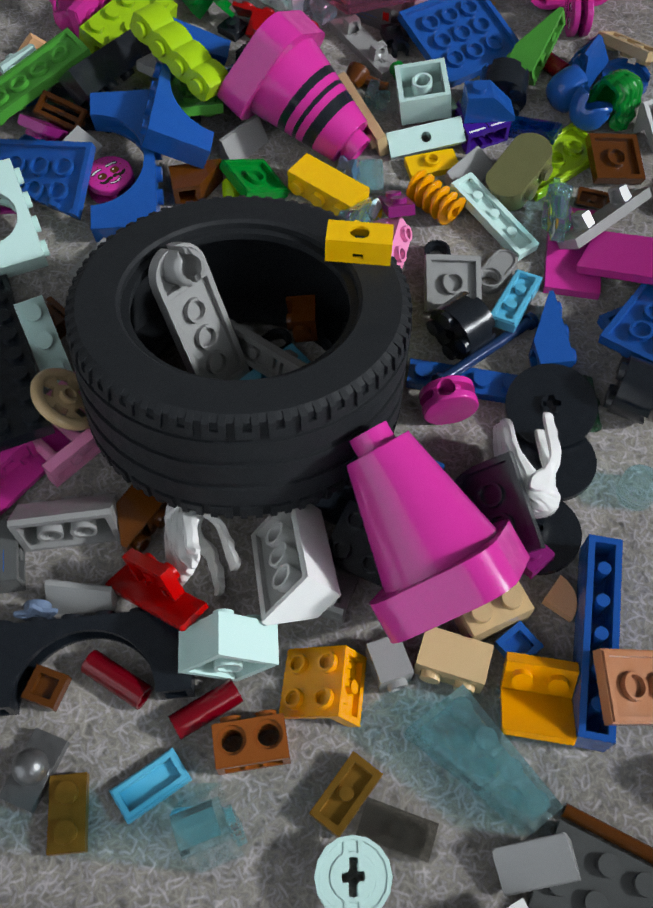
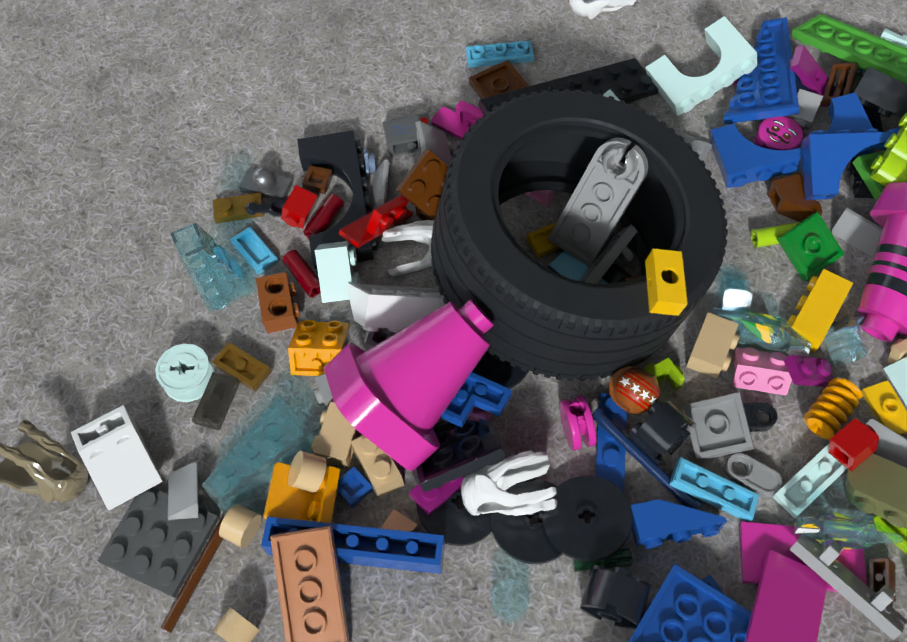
camera: 90 degrees right, 0 degrees up
(83, 752) = (274, 207): none -> black piece
(95, 712) = (298, 207): none -> red brick
(120, 512) = (425, 183): none -> reddish brown plate
(427, 337) = (634, 390): none -> dark orange helmet
(482, 181) = (853, 444): none -> red brick
(516, 688) = (307, 471): none -> tan piece
(576, 783) = (240, 525): none -> tan piece

